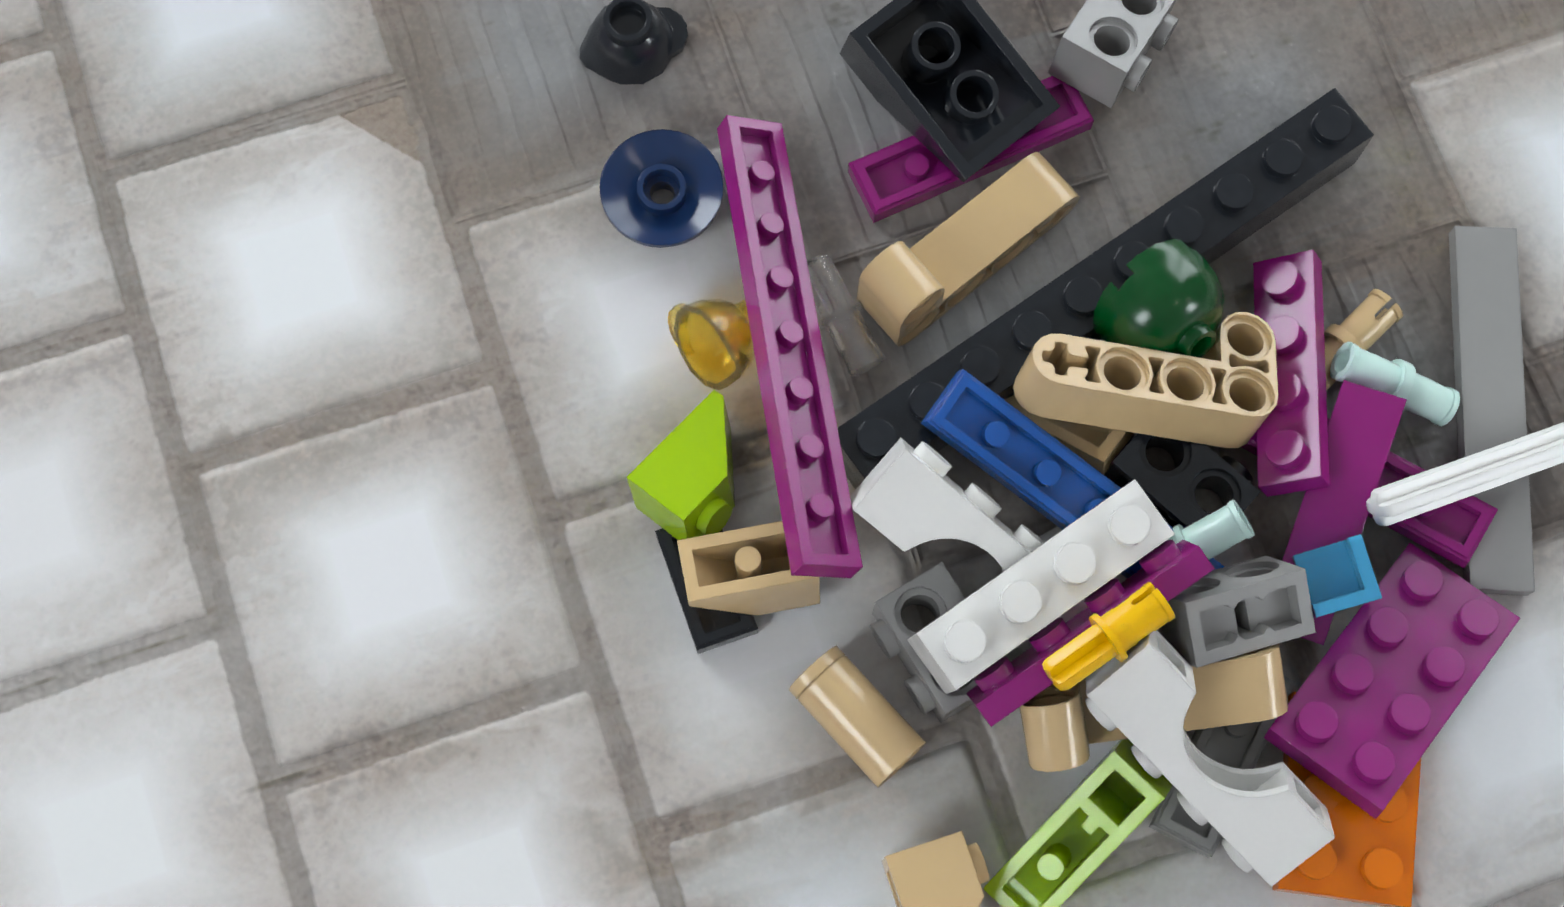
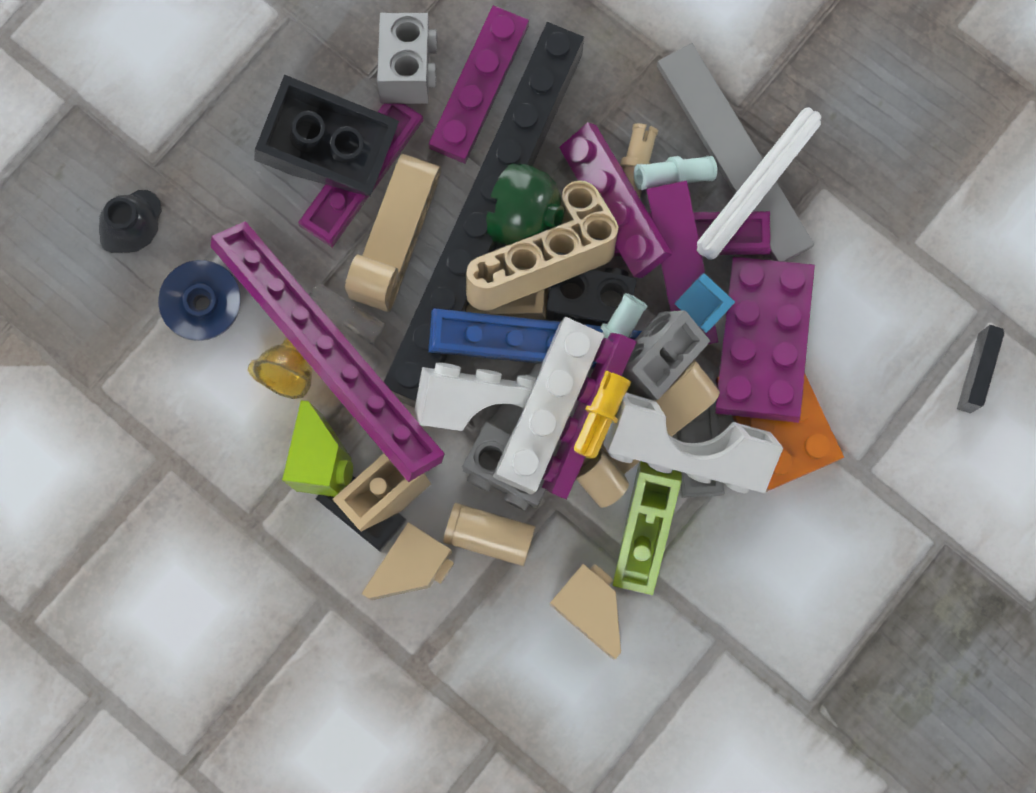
camera: 30 degrees left, 5 degrees up
(726, 693) = (410, 565): none -> tan slope
(1192, 123) = (478, 84): none -> magenta plate

